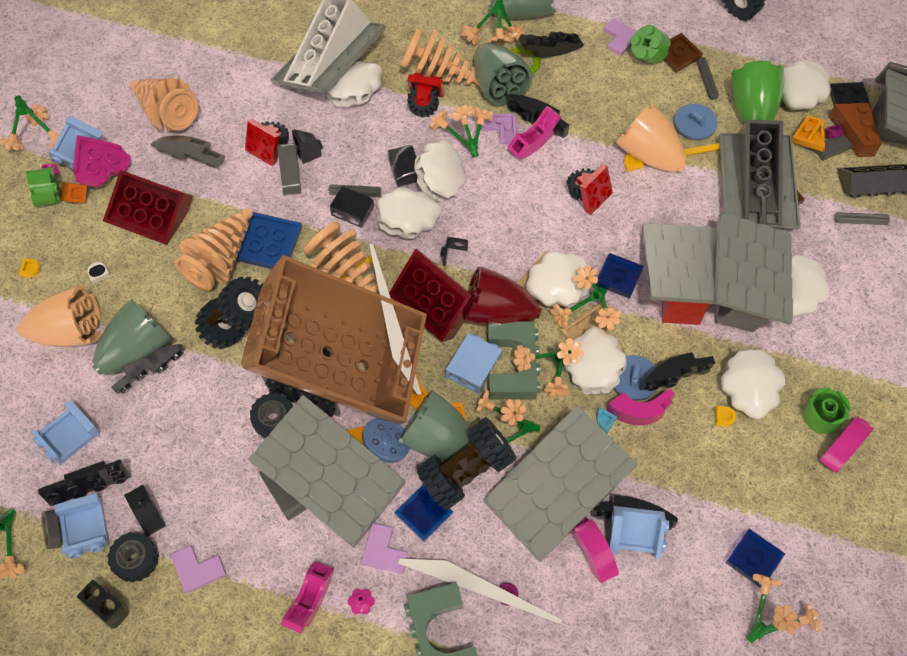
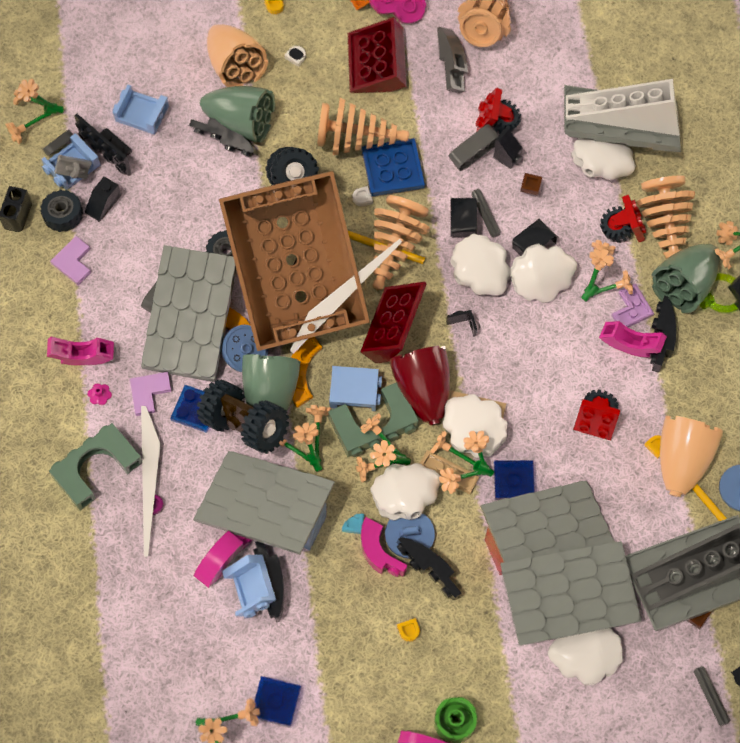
camera: 65 degrees right, 5 degrees up
(91, 523) = (72, 166): none -> light grey hips
(349, 144) = (531, 184): none -> reddish brown tile
(753, 382) = (452, 641): white piece -> none

